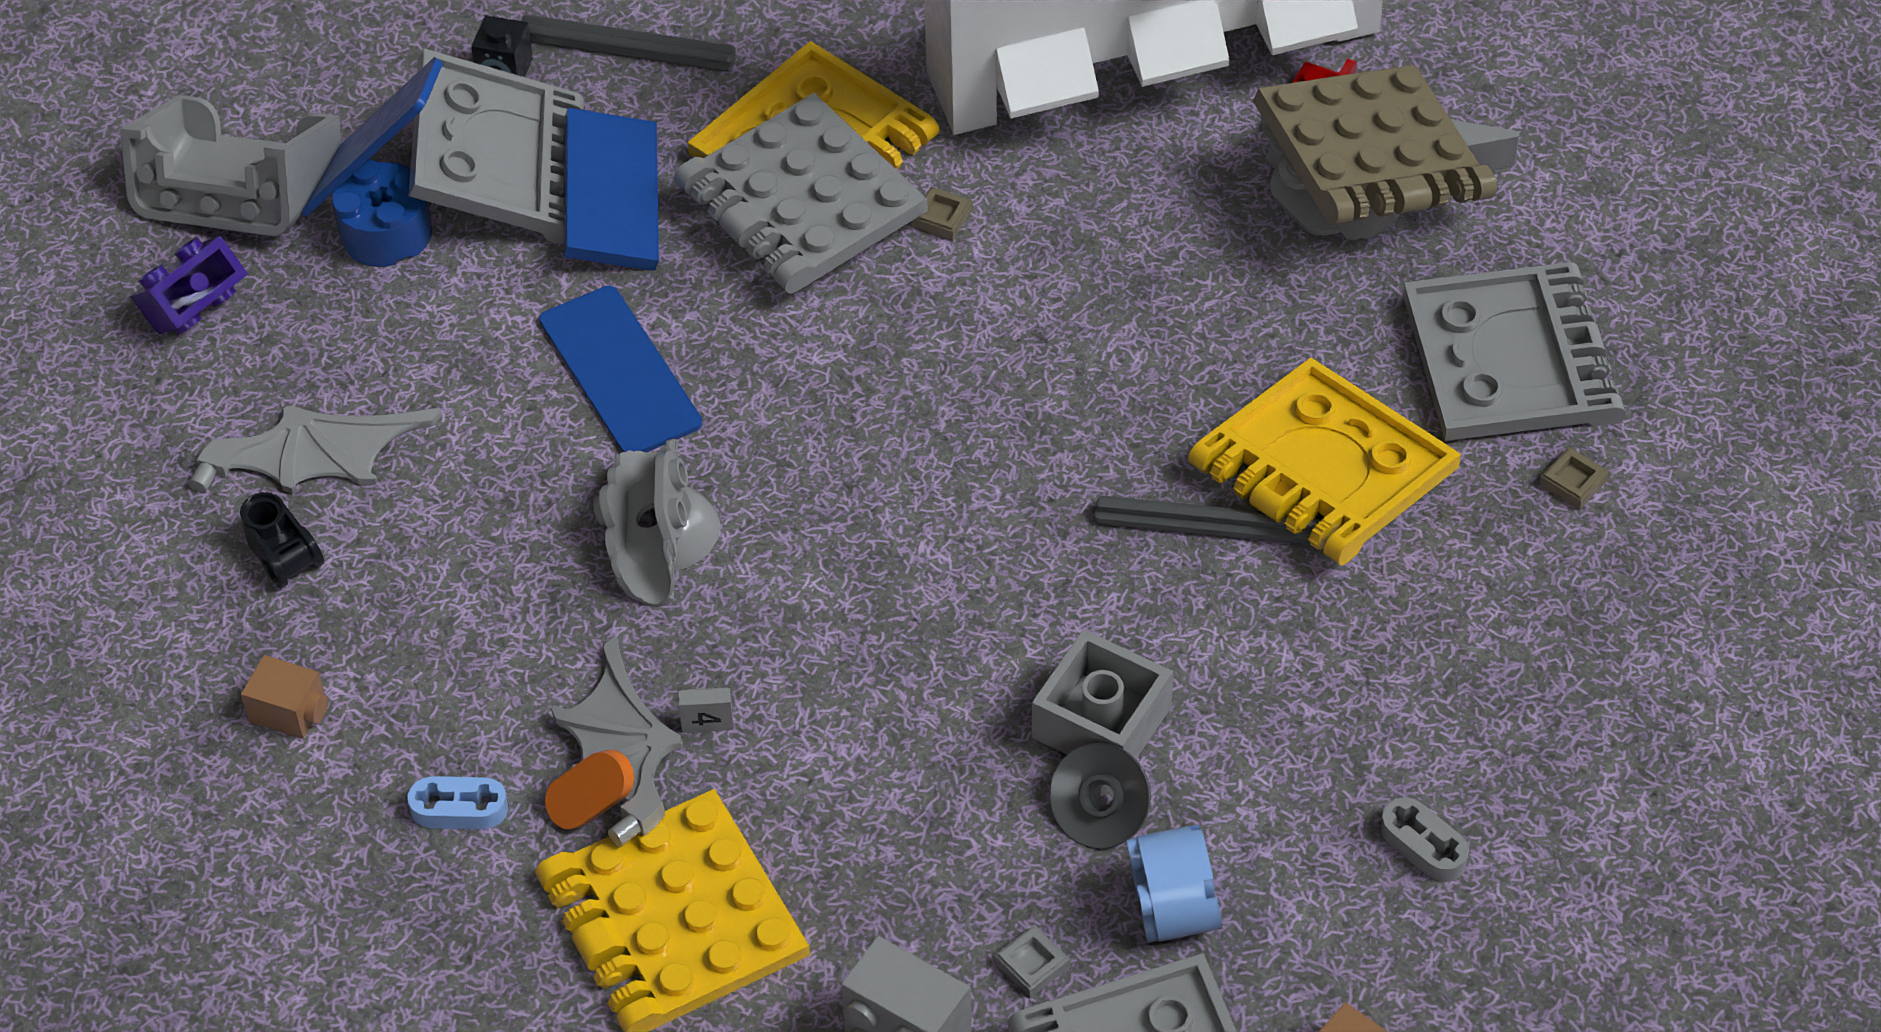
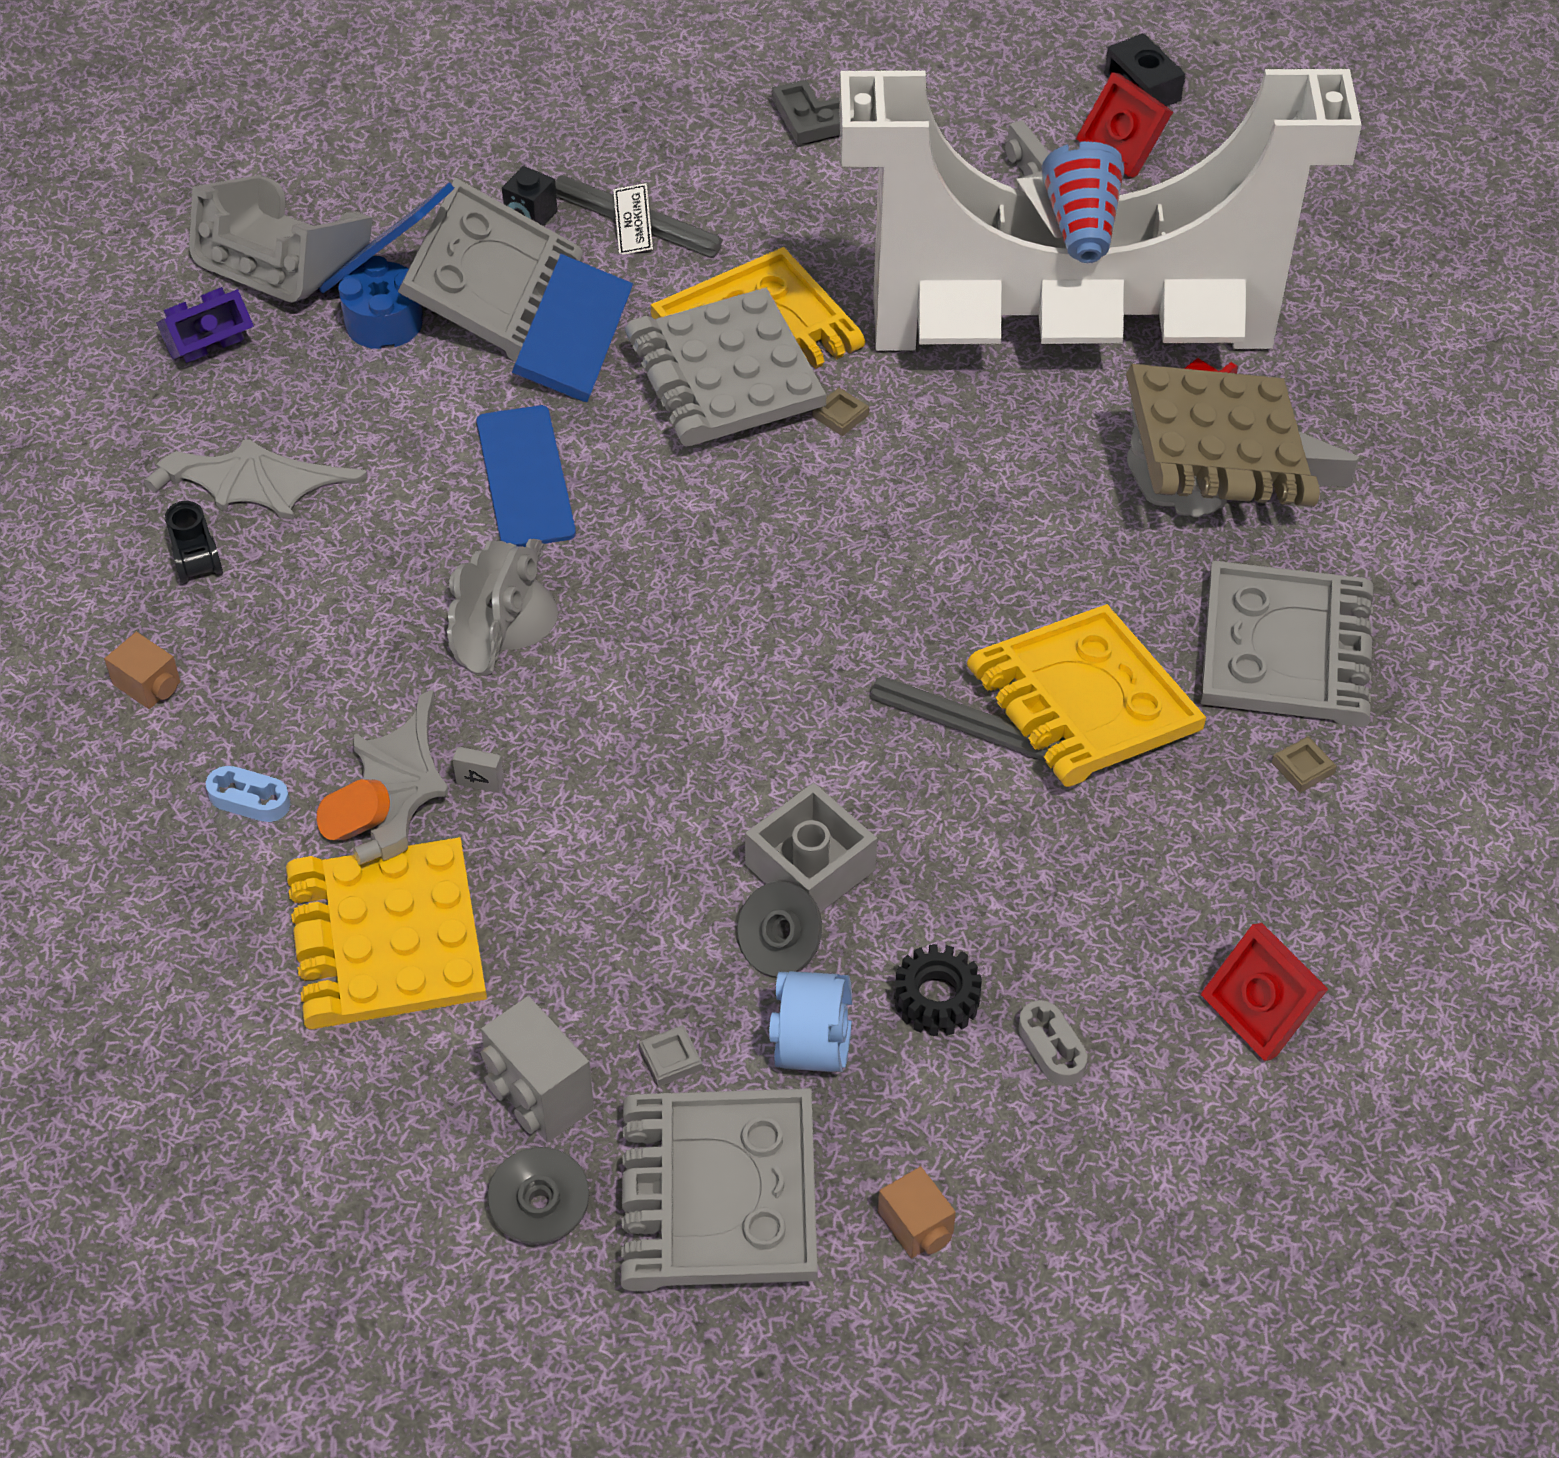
camera: 15 degrees right, 0 degrees up
(627, 47) = (633, 219): none -> white sticker
(1293, 791) = (937, 1013): none -> black tyre
(1625, 727) = (1263, 991): none -> red tile

